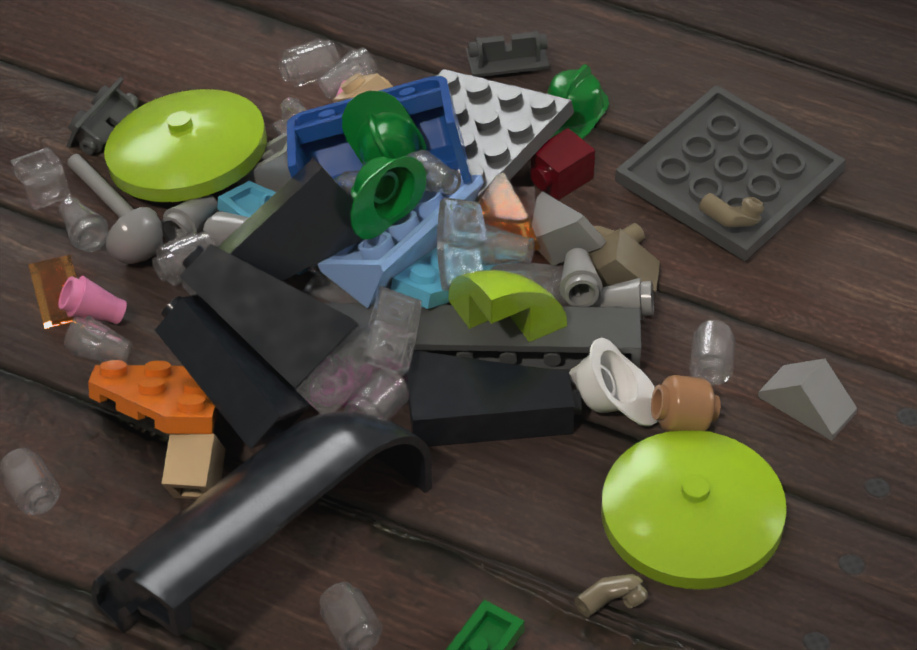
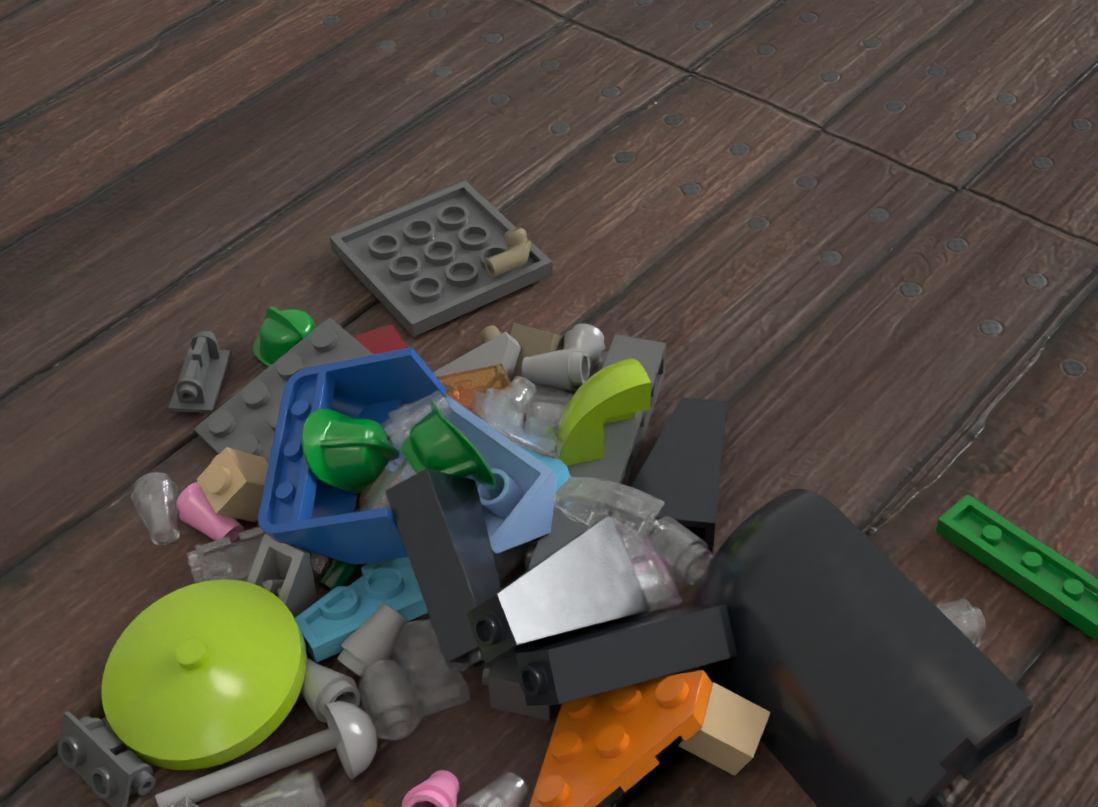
camera: 75 degrees left, 5 degrees down
(307, 61) = (121, 538): clear brick -> none
(610, 588) = (926, 434): dark tan arm -> none
(613, 383) = (692, 378): white piece -> none
(684, 404) = (727, 339): medium nougat head -> none
(693, 509) = (838, 368): lime dish -> none
(712, 352) = (666, 311): clear brick -> none
(811, 396) = (726, 268): light grey slope -> none

